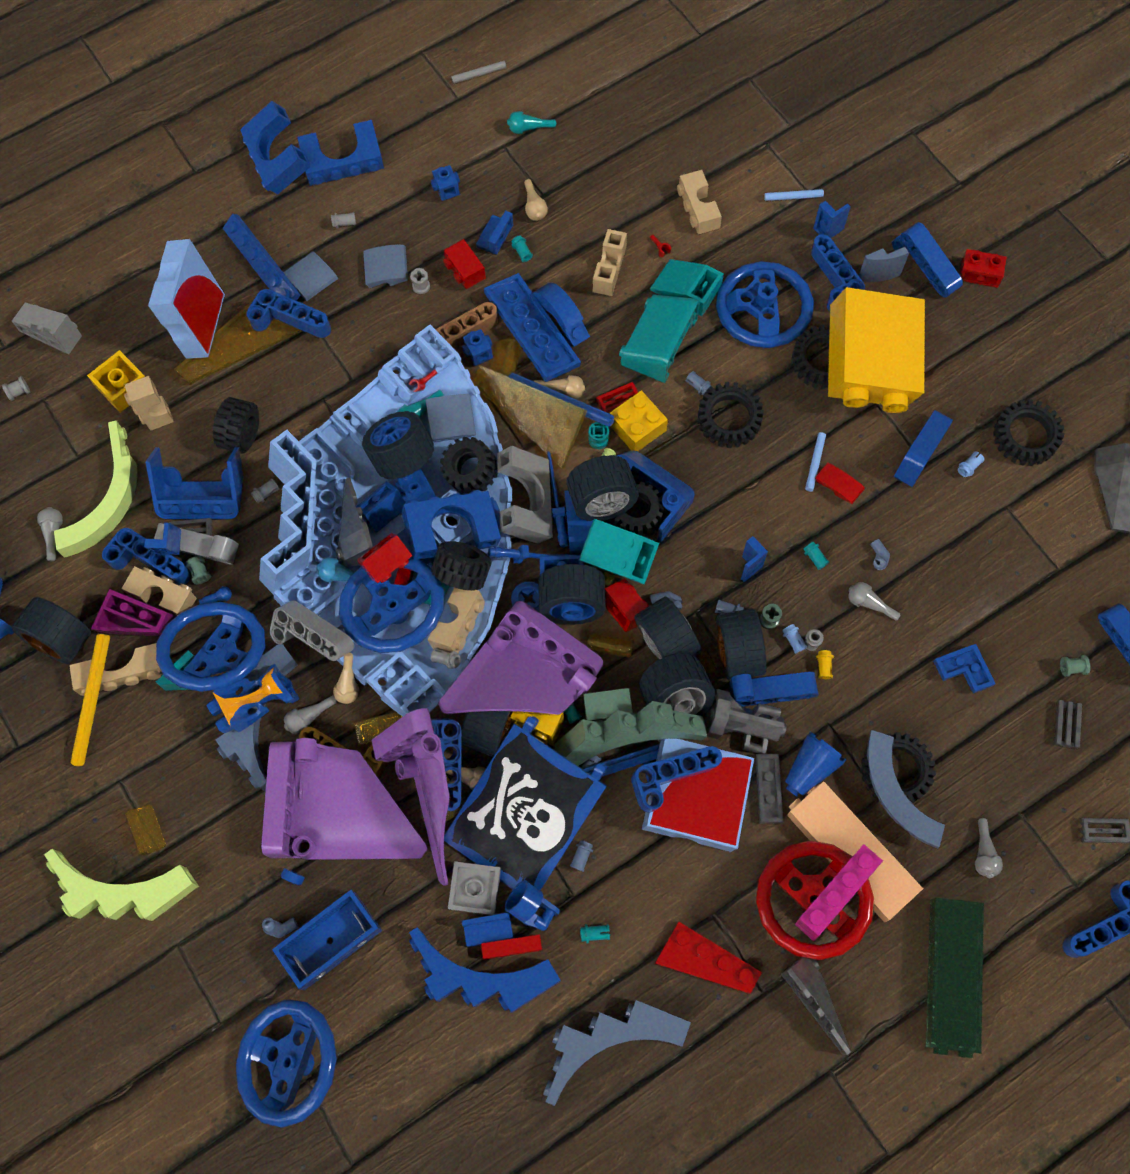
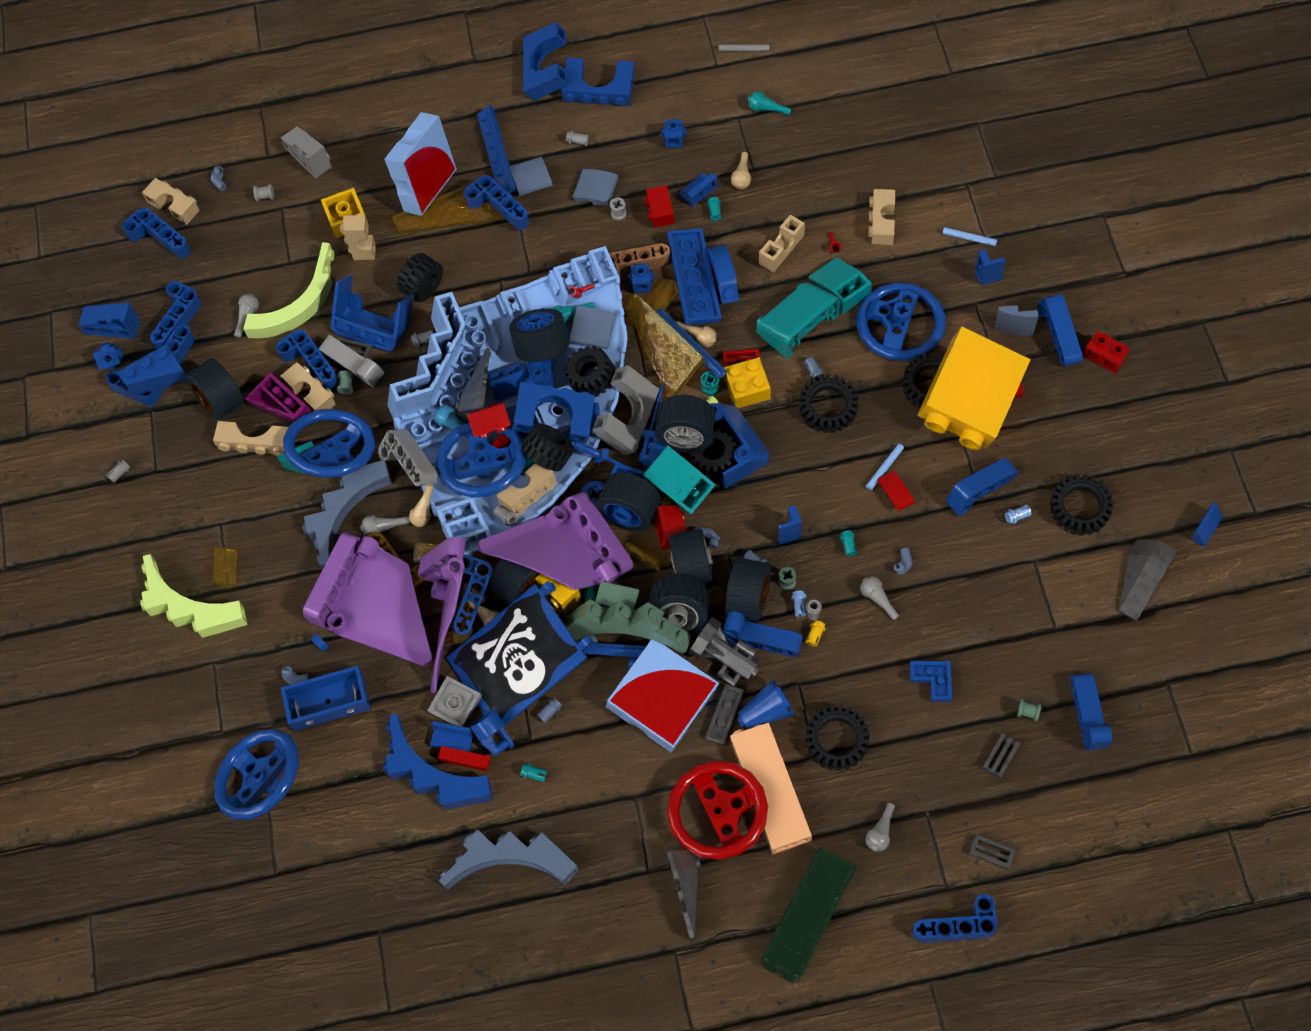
camera: 25 degrees right, 5 degrees down
(90, 700) = (222, 452): yellow axle -> none
(170, 542) = (328, 352): blue panel -> none
(222, 594) = (356, 408): blue piece -> none
(237, 707) = (329, 497): blue hips -> none
(677, 771) = (647, 669): blue beam -> none
(700, 957) = (611, 825): red wing -> none
(824, 253) = (976, 311): blue beam -> none
(838, 892) = (751, 790): dark pink arch -> none
(891, 795) = (819, 756): sand blue tile -> none

